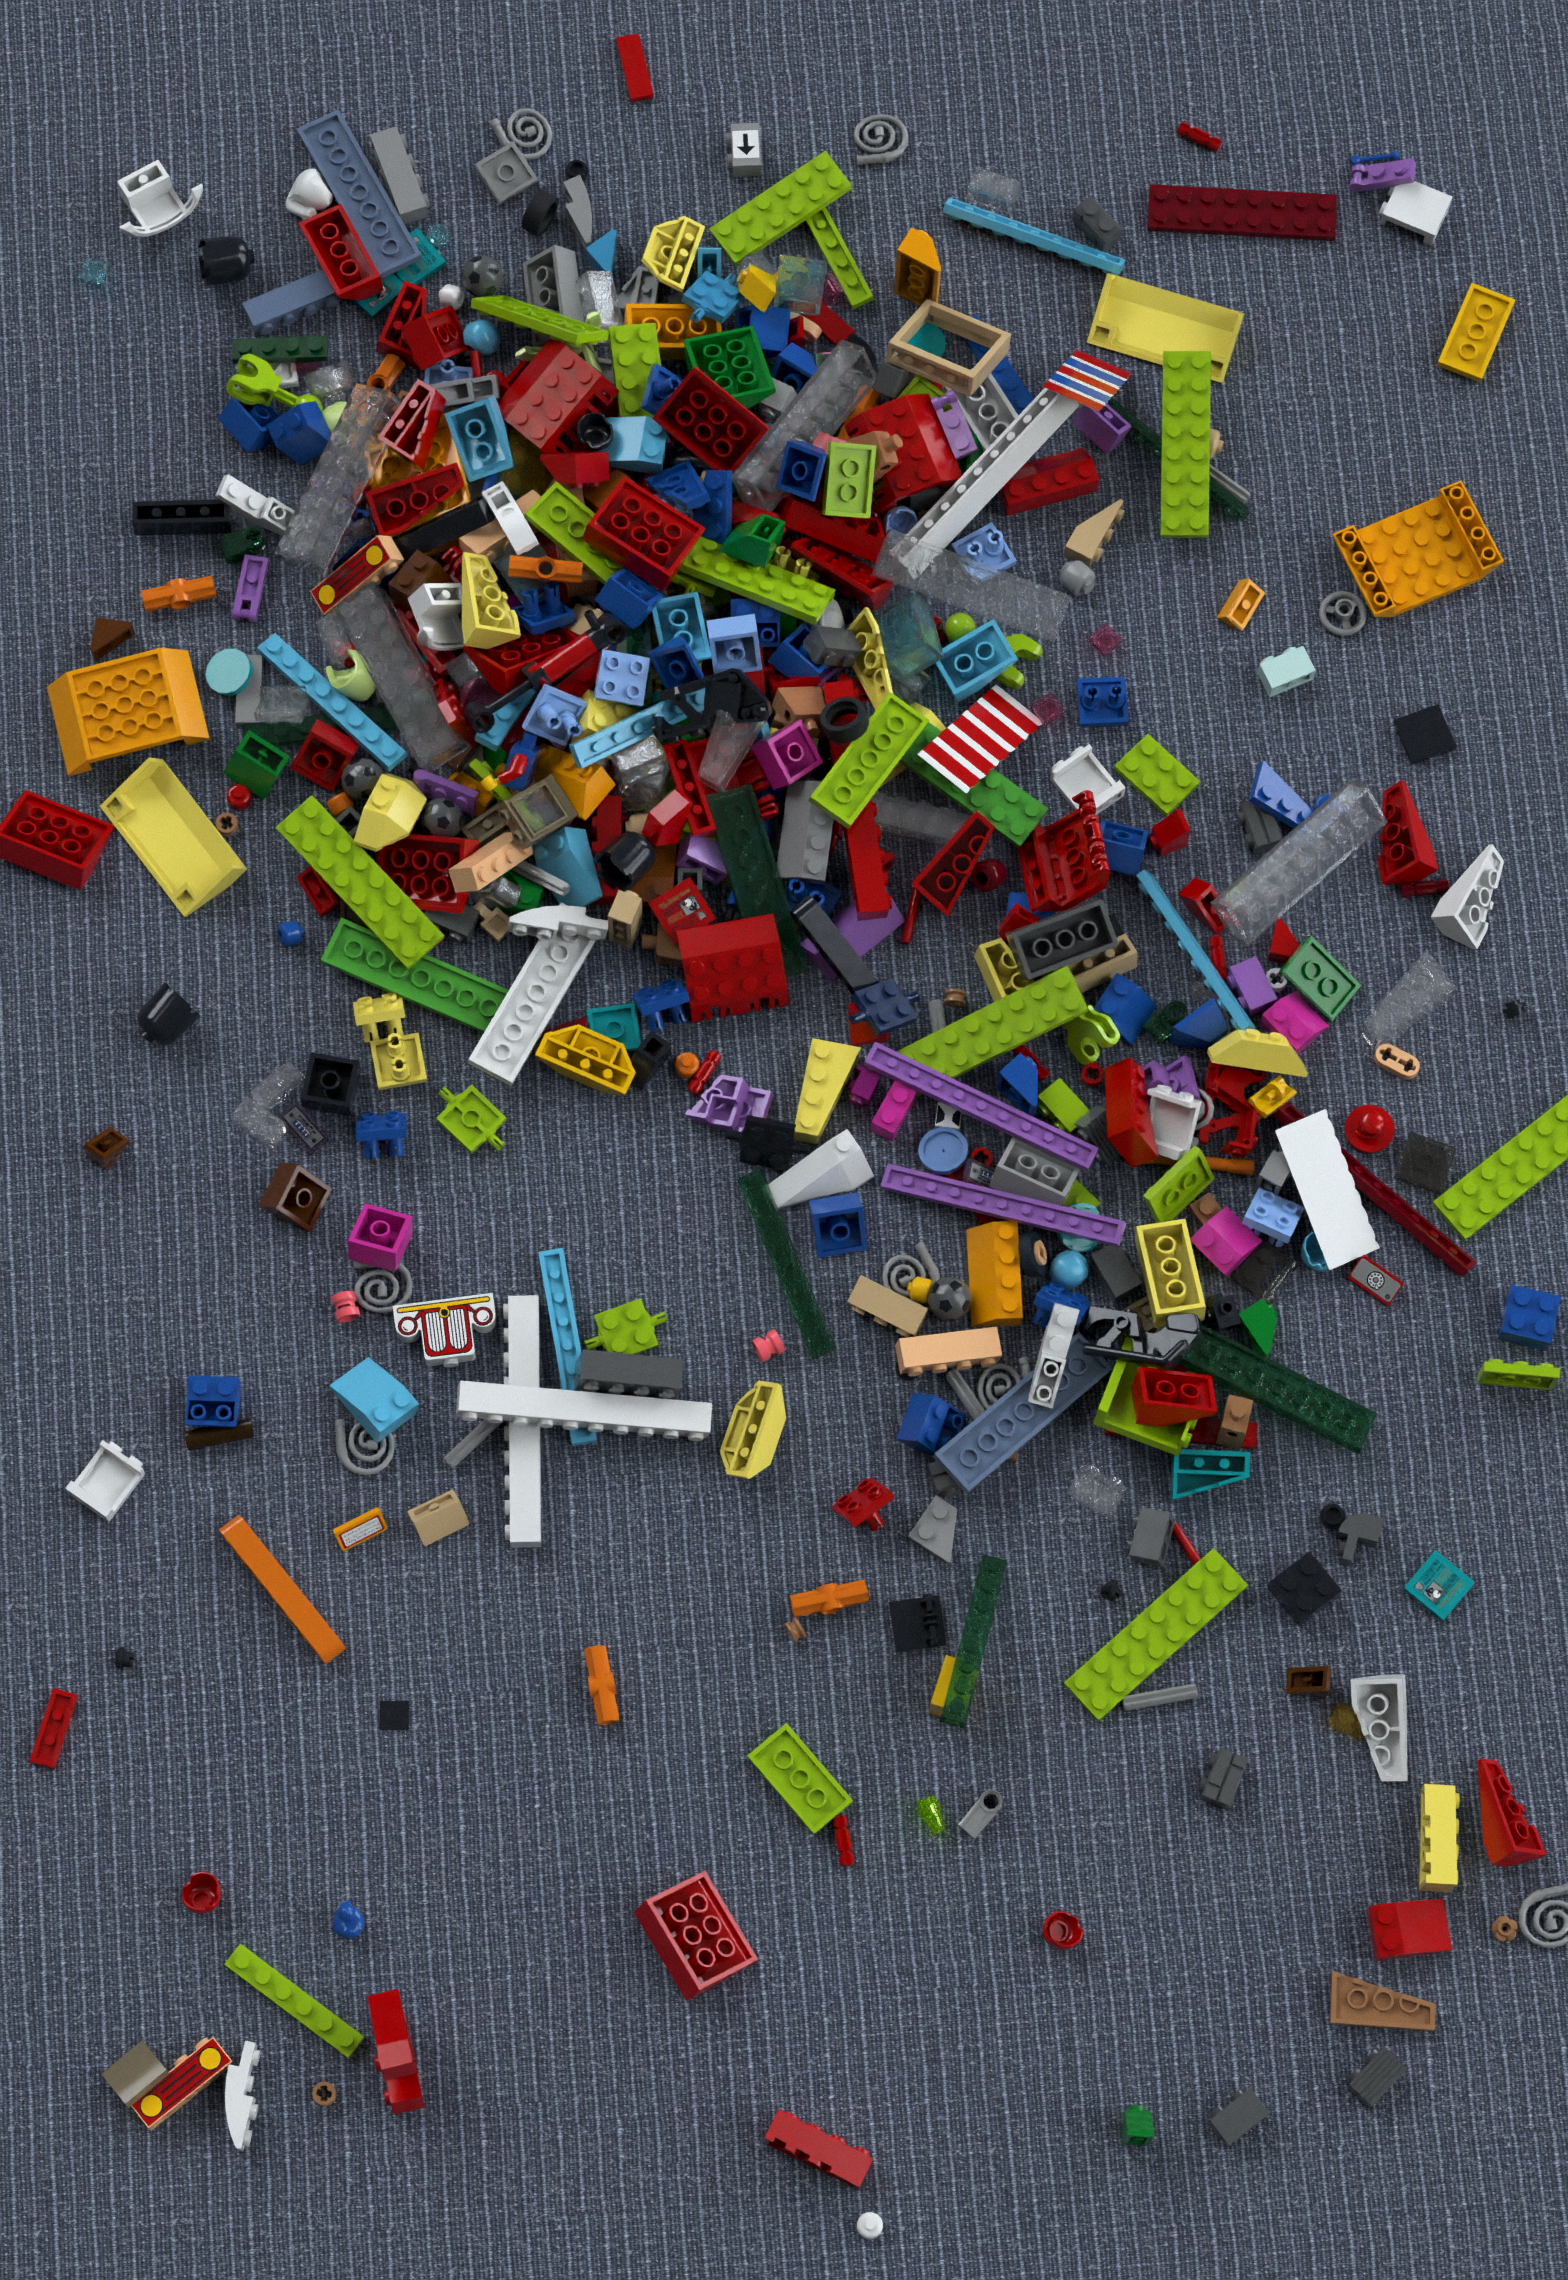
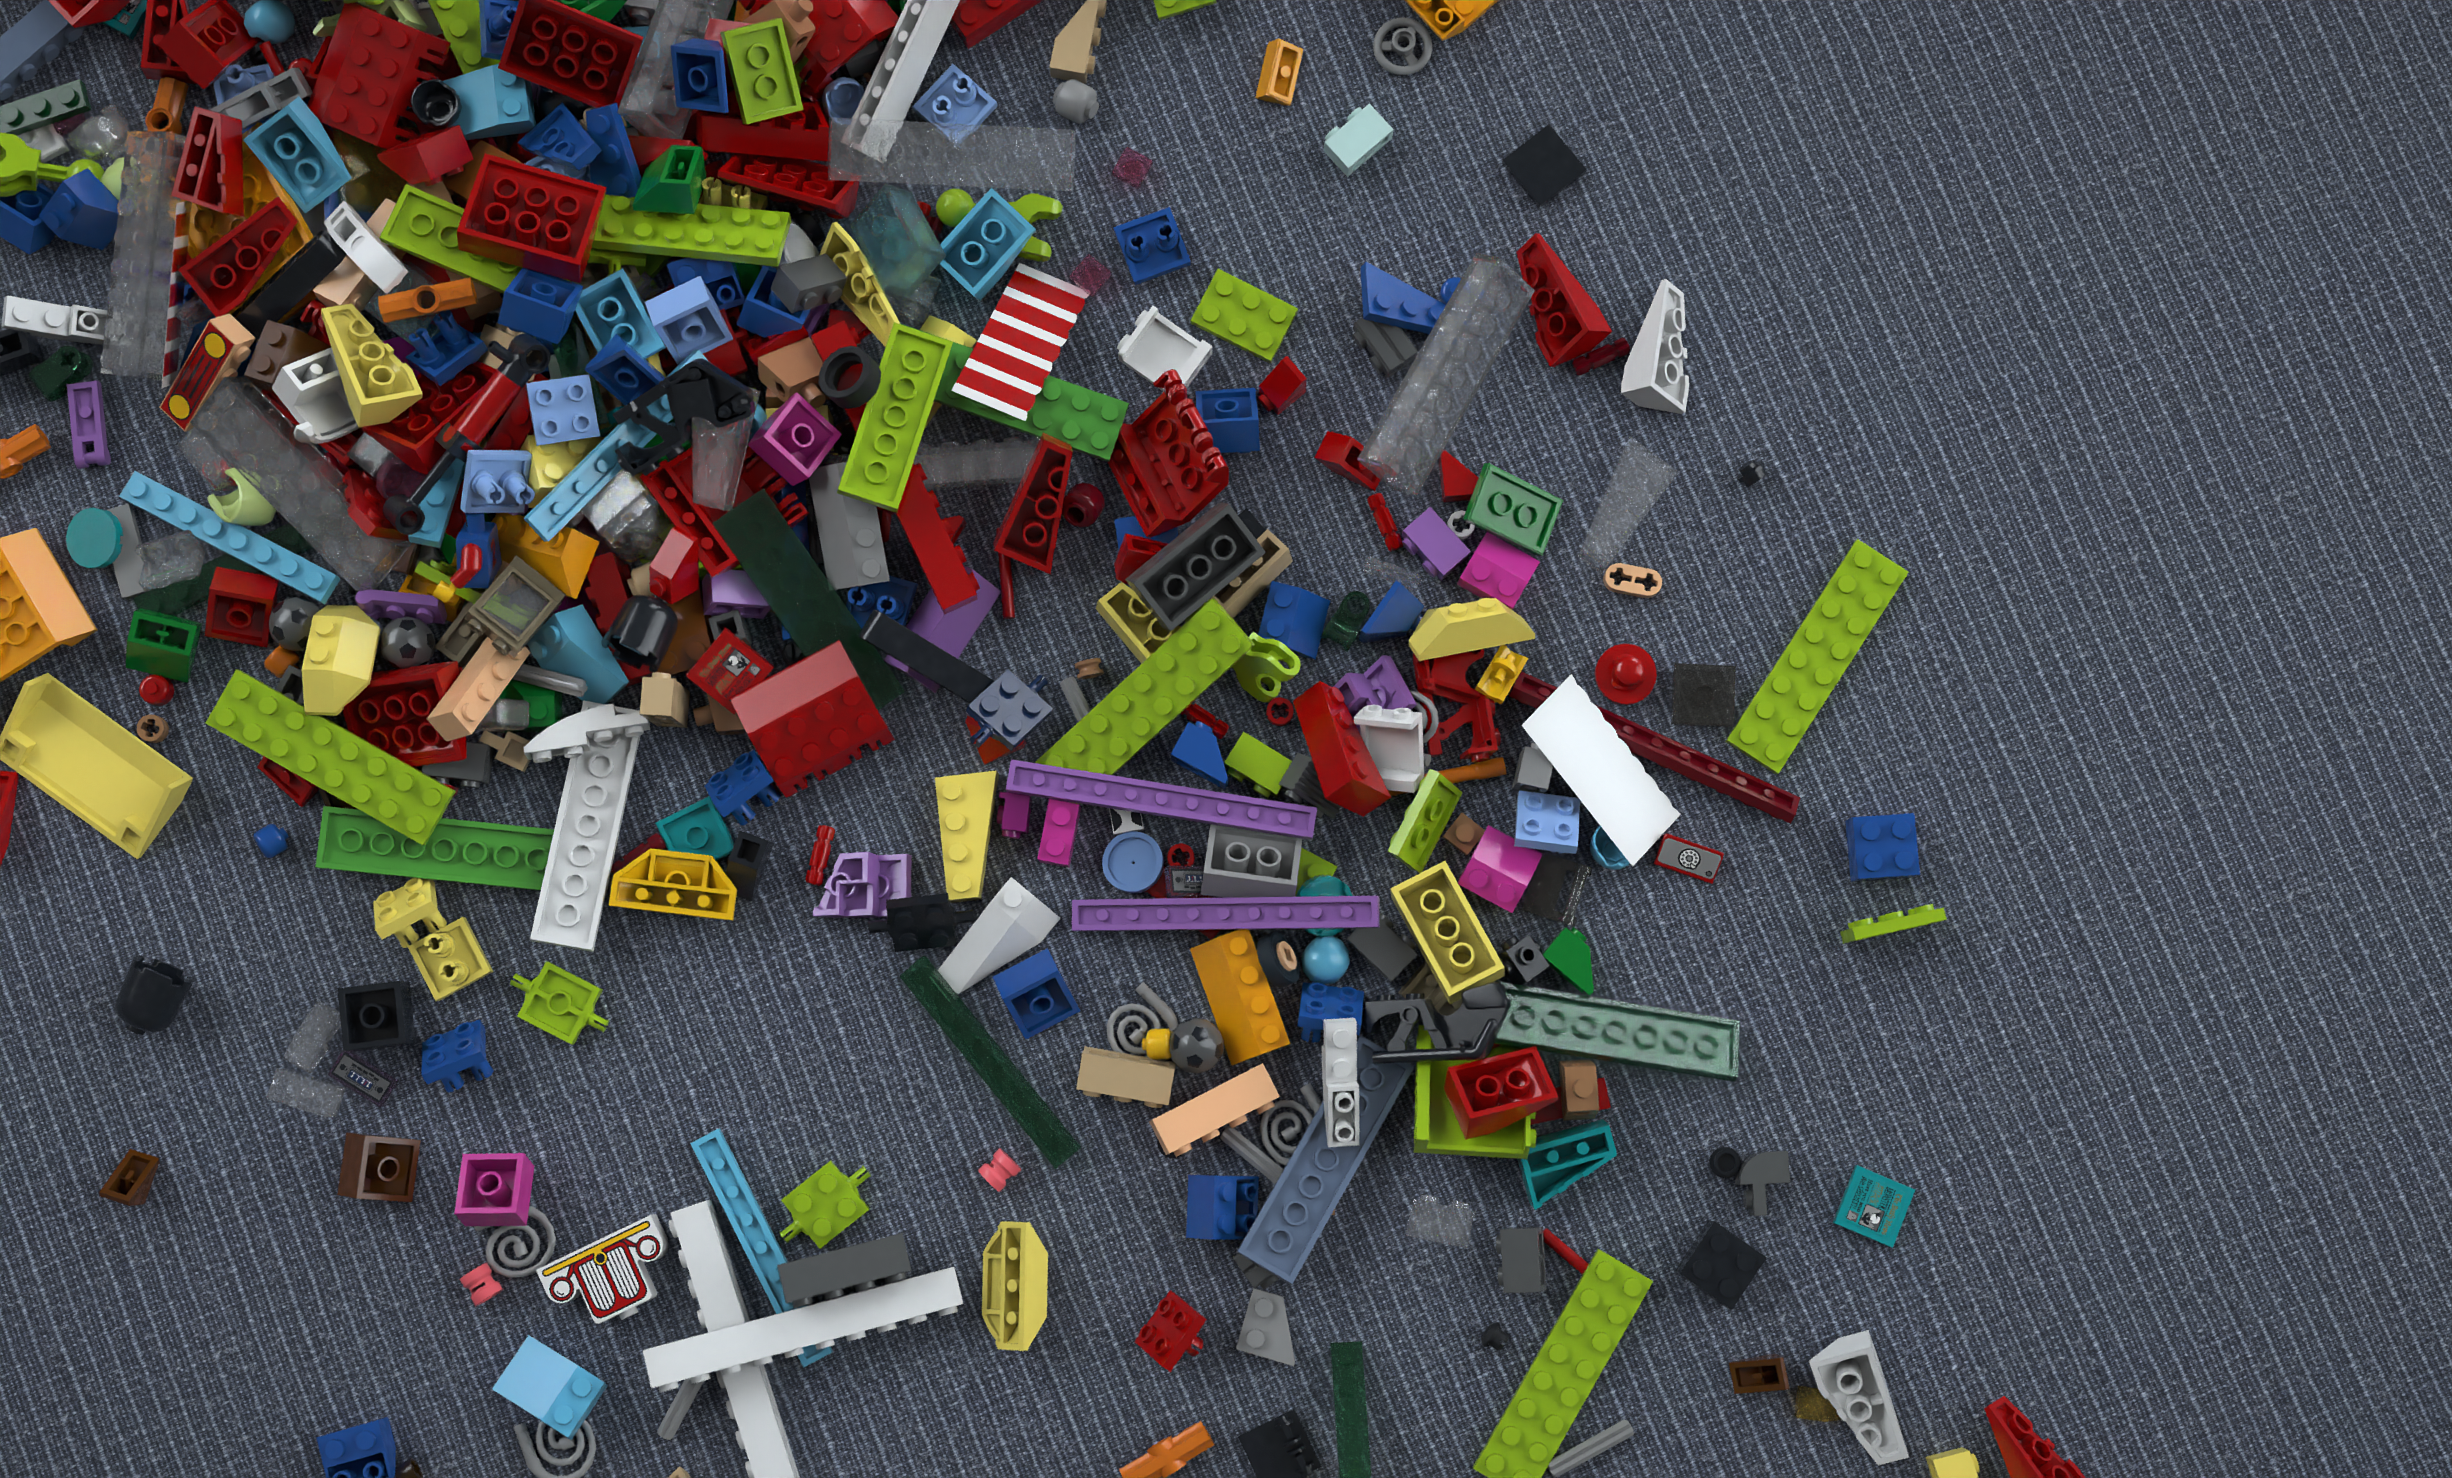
camera: 15 degrees left, 10 degrees up
(686, 1065) = (796, 853): orange piece -> none
(1189, 944) = (1347, 516): medium azure plate -> none

